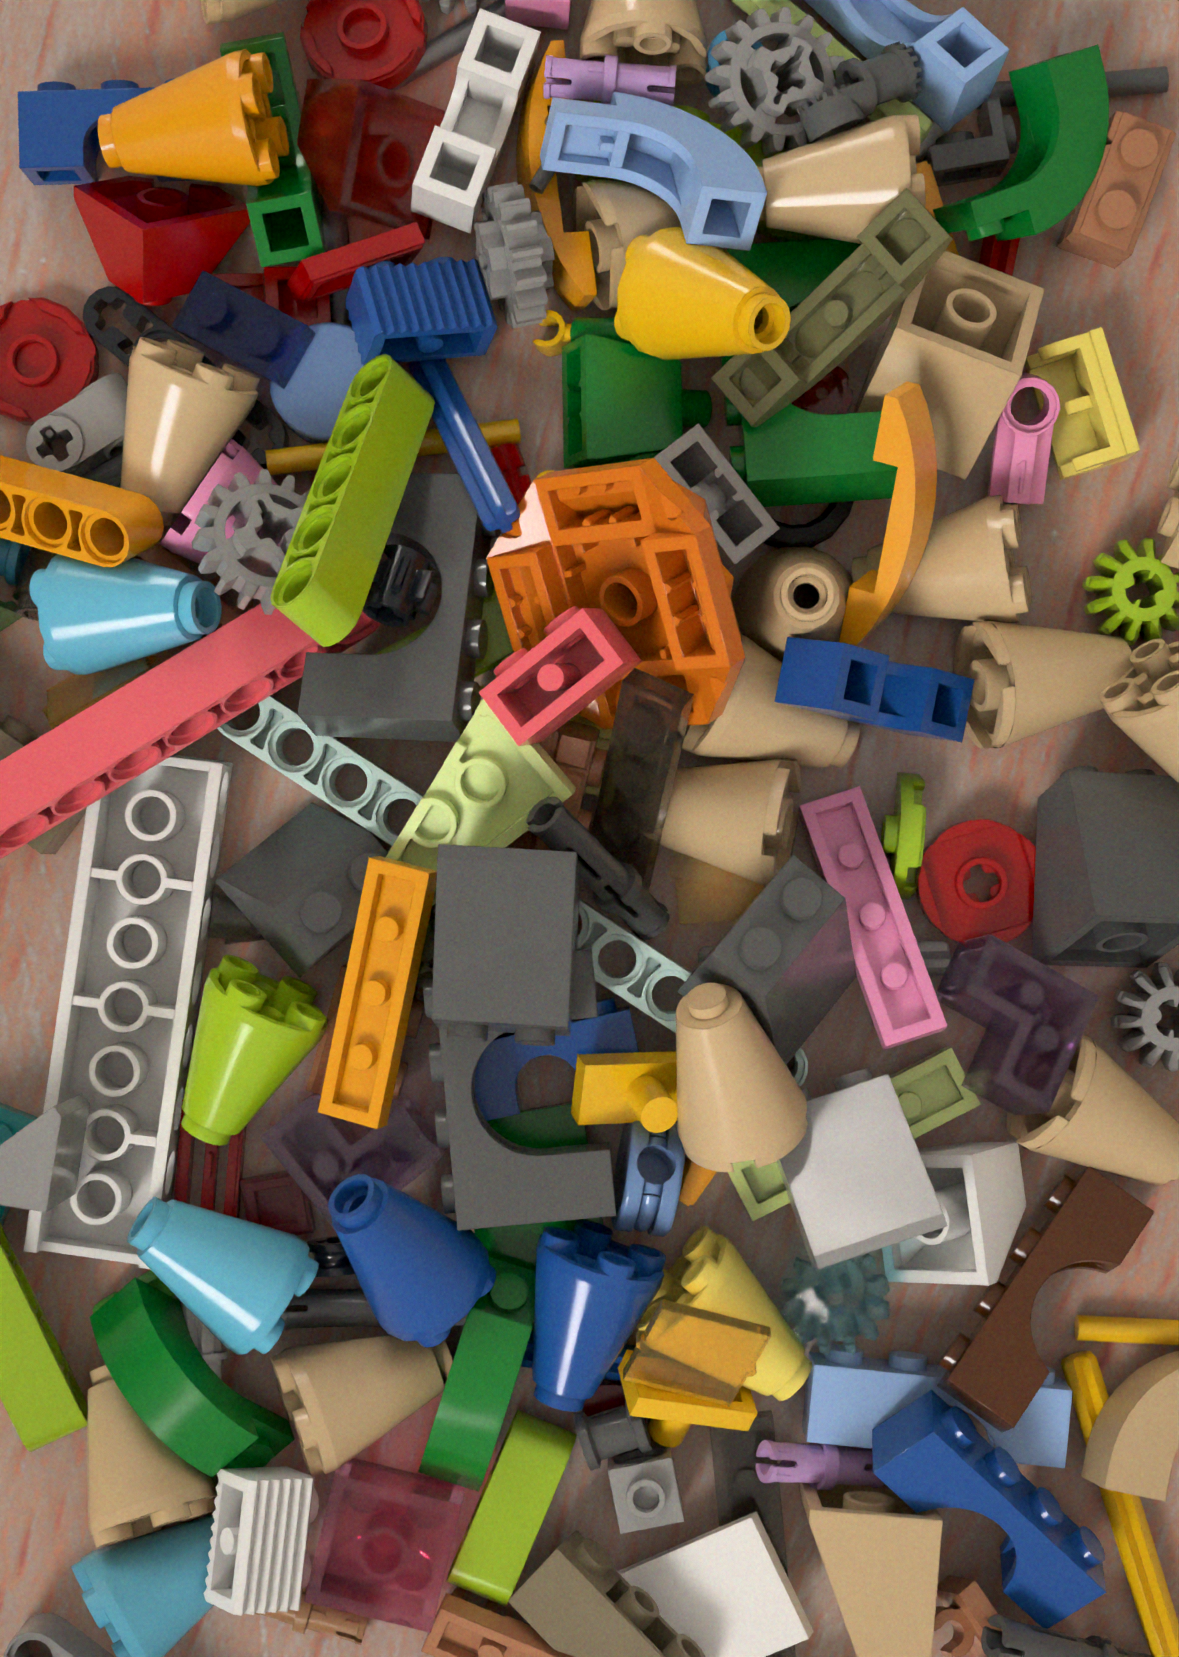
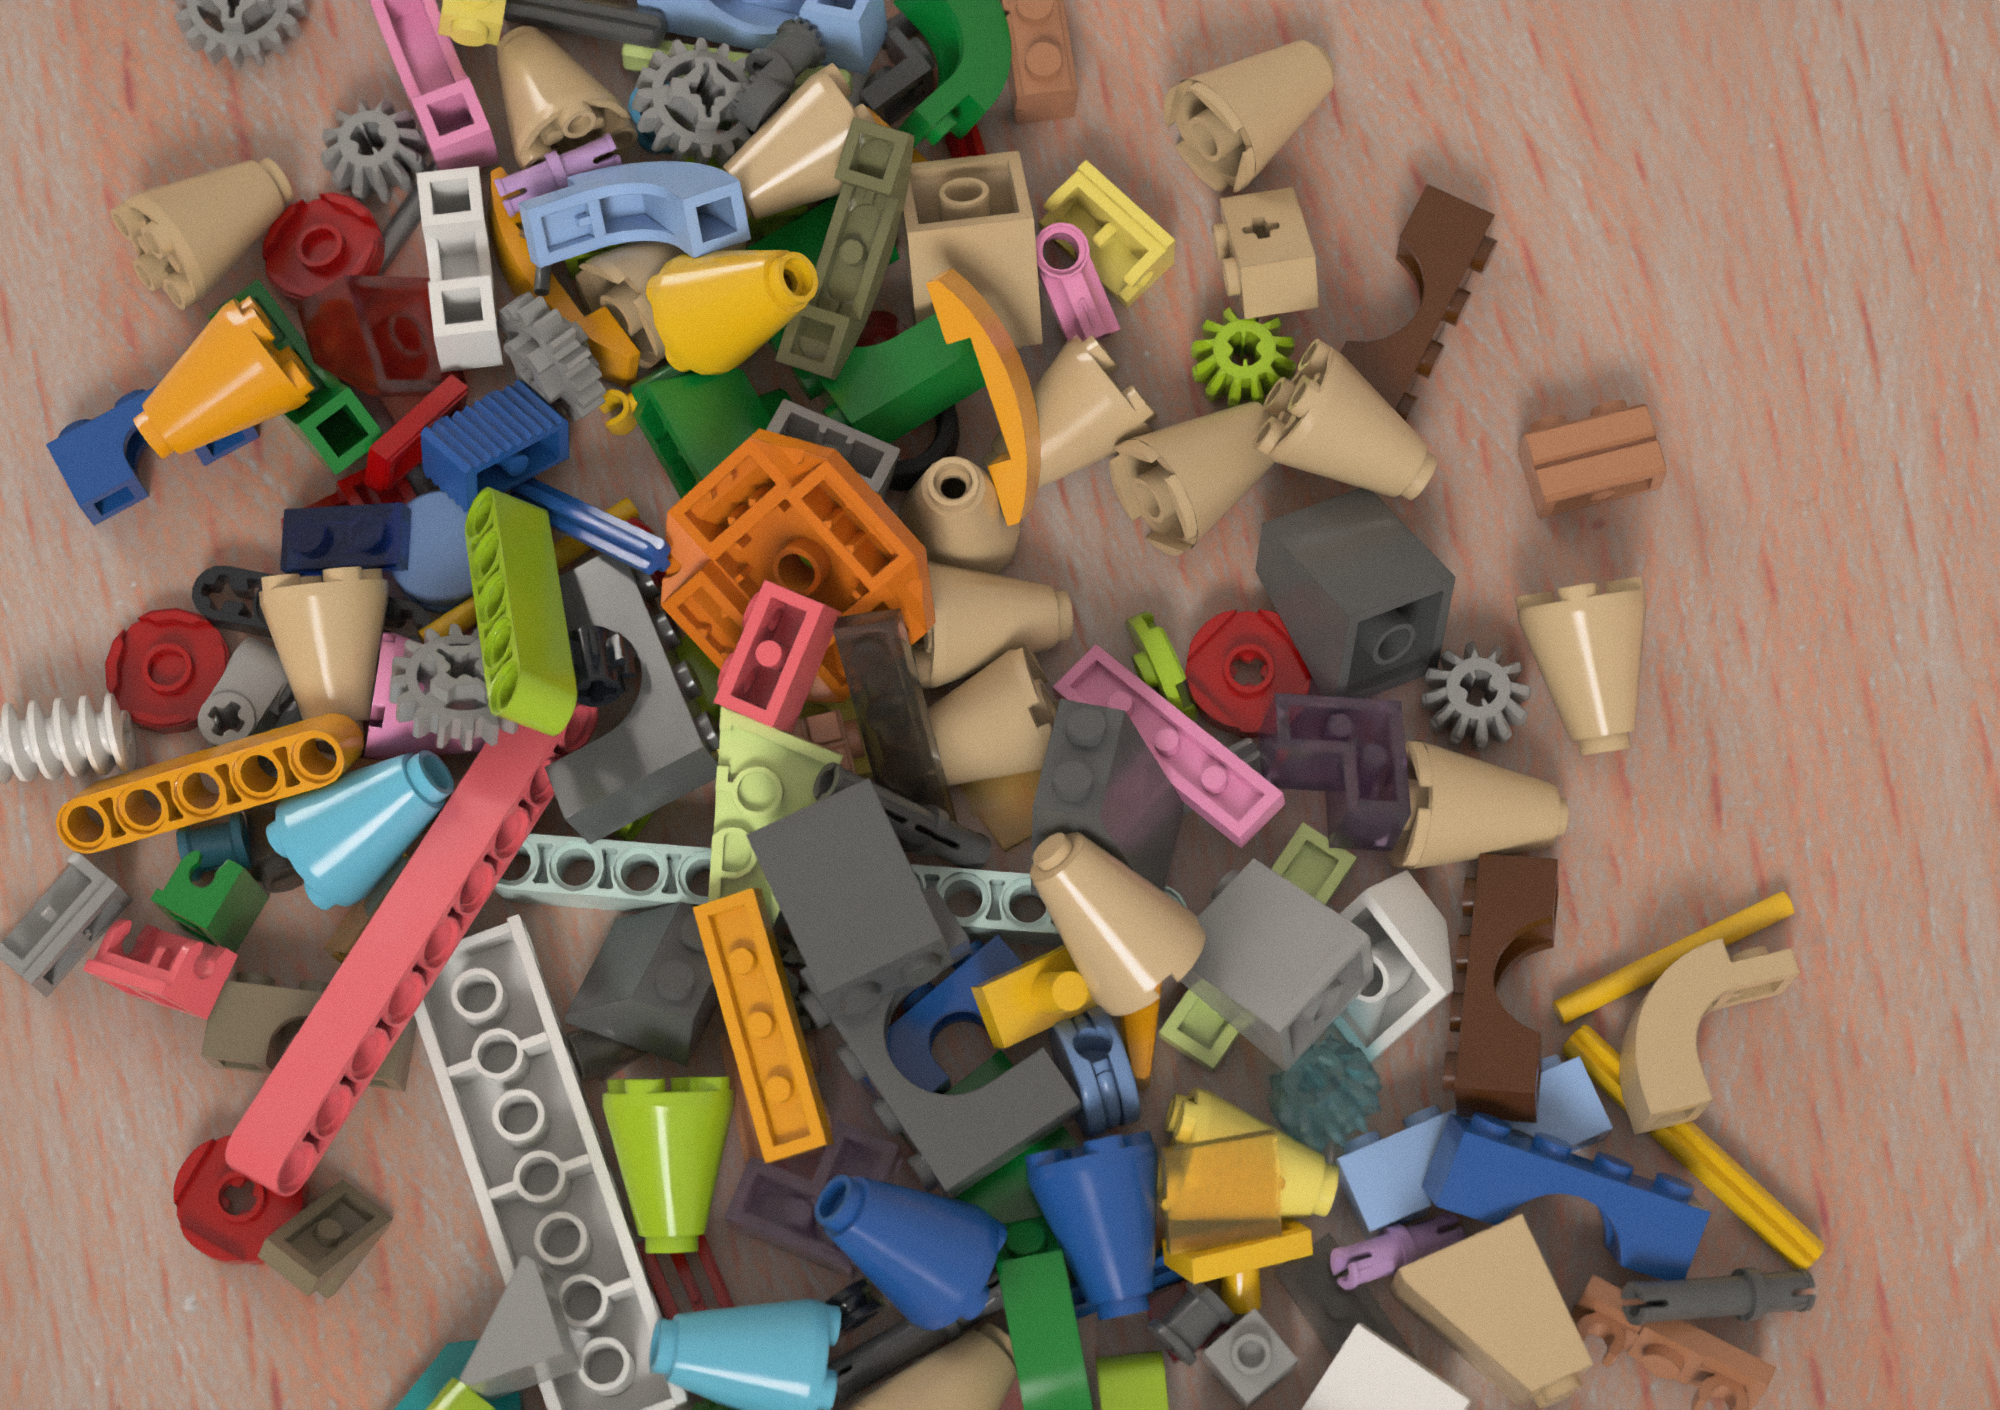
camera: 15 degrees left, 15 degrees down
(159, 236) = (230, 506): red slope -> none
(277, 1203) = (772, 1282): dark red tile -> none
(872, 690) = (1033, 549): blue arch -> none

